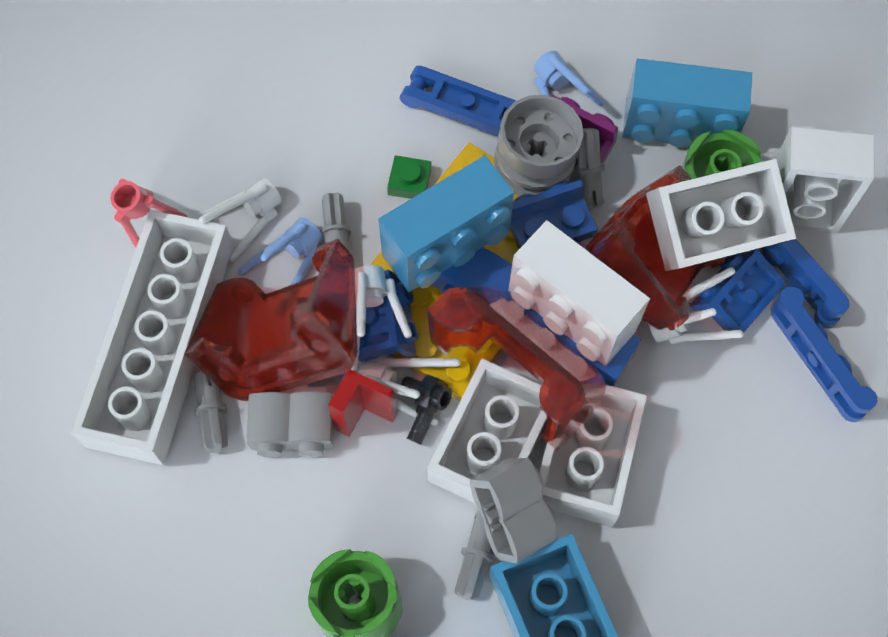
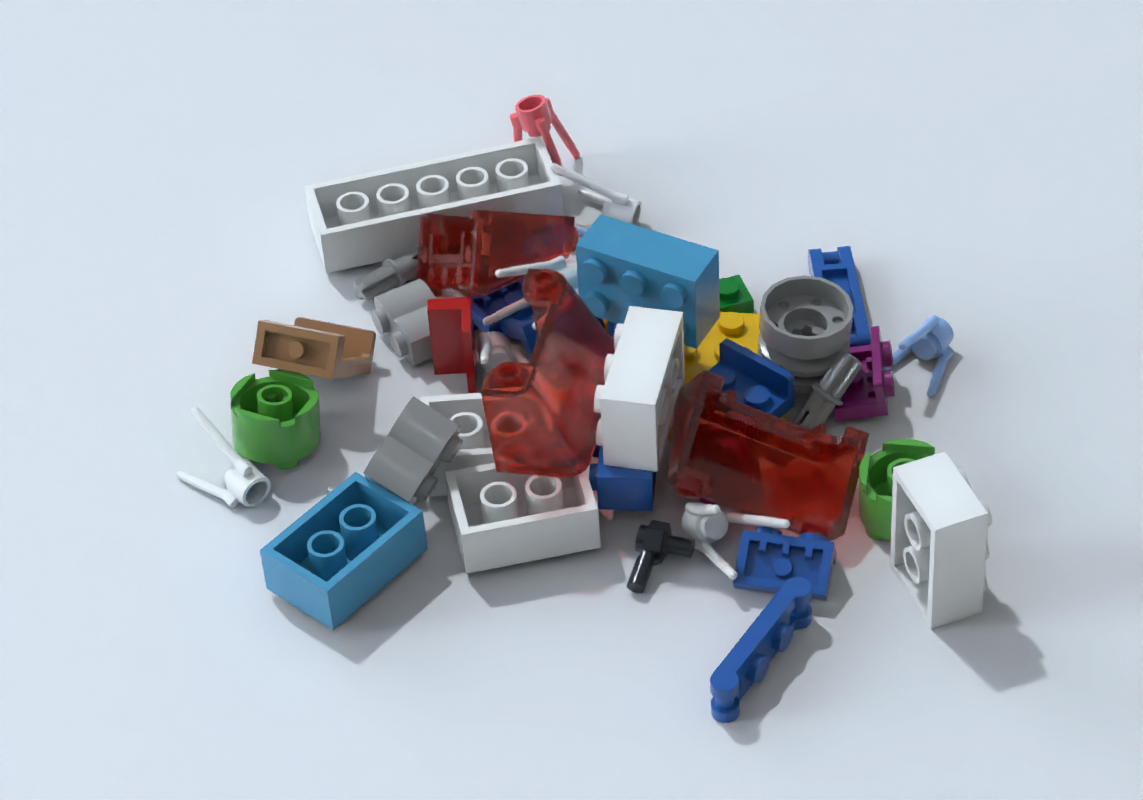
camera: 65 degrees right, 25 degrees down
(294, 526) = (314, 348): none -> medium nougat panel
(667, 370) = (654, 544): none -> black piece
(683, 101) = (958, 416): dark azure brick -> none
(720, 214) = (822, 469): white brick -> none
(811, 279) = (843, 605): blue plate -> none

